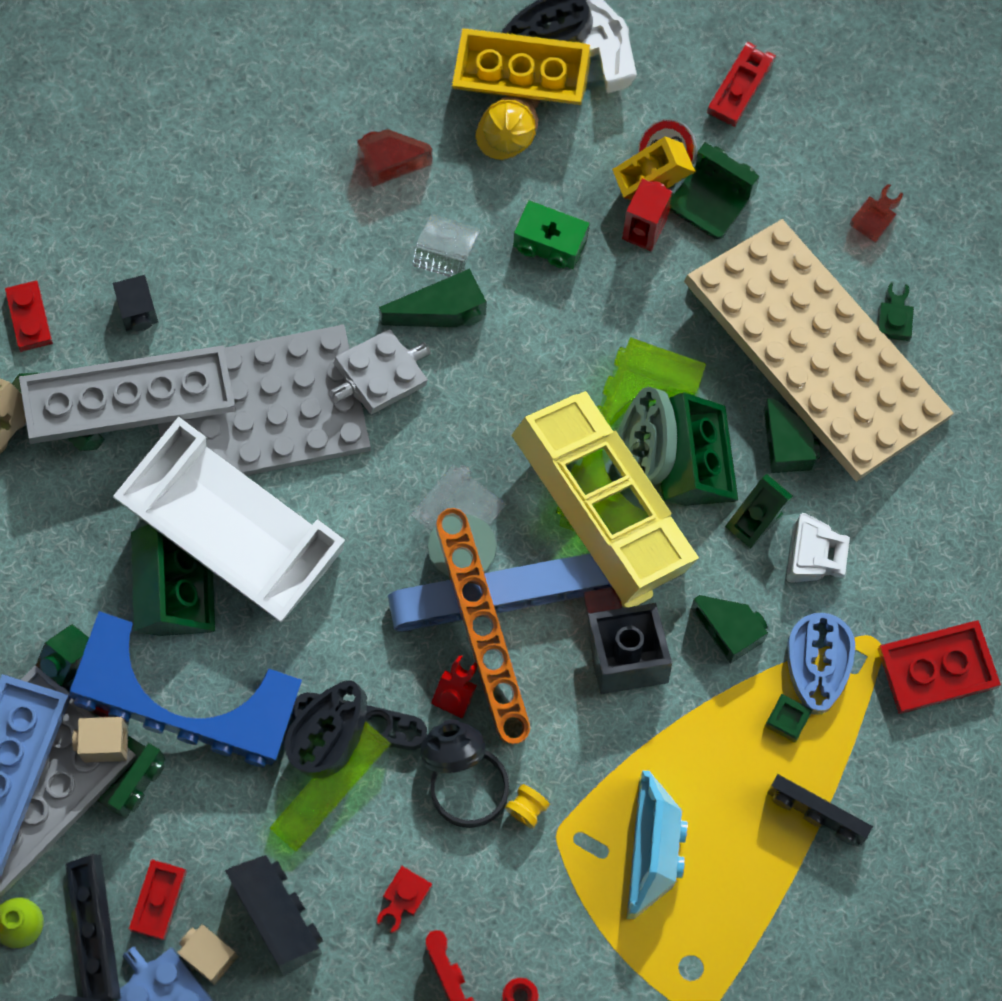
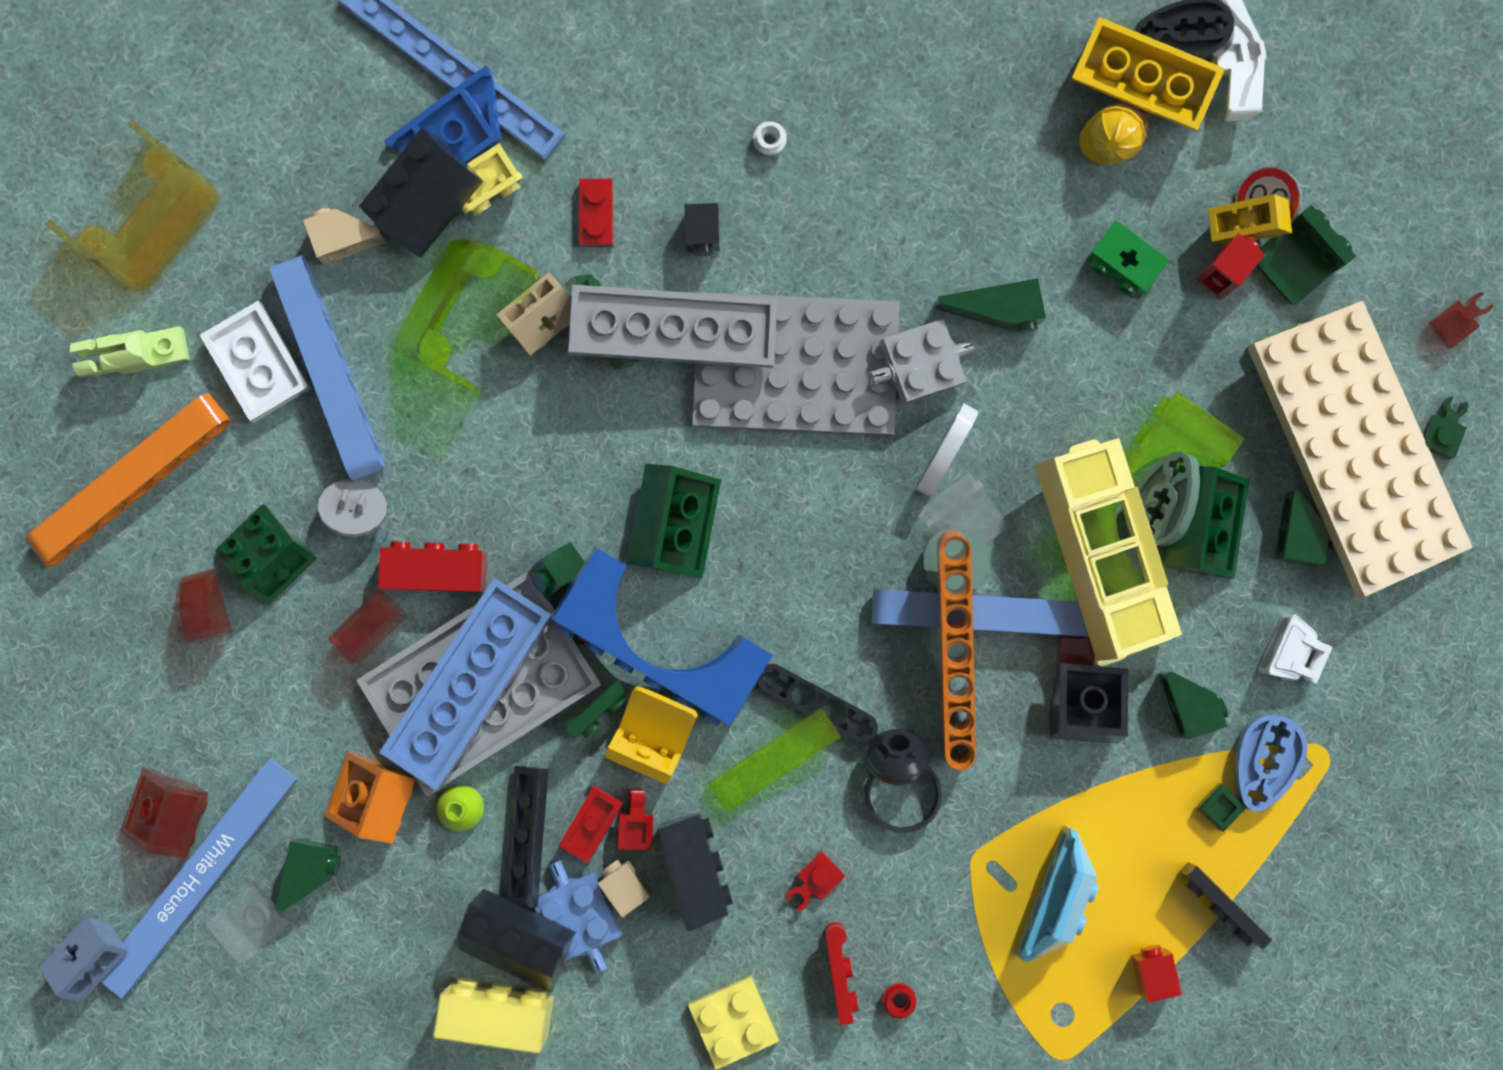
camera: 20 degrees right, 15 degrees up
(101, 739) = (571, 666): tan brick -> none
(182, 201) = (769, 128): none -> white plate
(199, 788) = (652, 734): none -> yellow bracket
(203, 891) = (635, 827): none -> red plate
(228, 521) = (740, 482): white slope -> none
(341, 743) = (768, 701): black piece -> none
(391, 155) = (990, 133): clear red slope -> none
(424, 444) = (947, 450): none -> white piece
(444, 246) = (1019, 243): clear piece -> none
(455, 690) = (914, 699): red plate -> none
(527, 806) = (952, 828): yellow wheel -> none
(740, 84) = (1363, 144): red plate -> none
(759, 511) = (1253, 600): dark green slope -> none
(770, 895) = (1156, 973): none -> red brick
(938, 667) = (1380, 797): red plate -> none

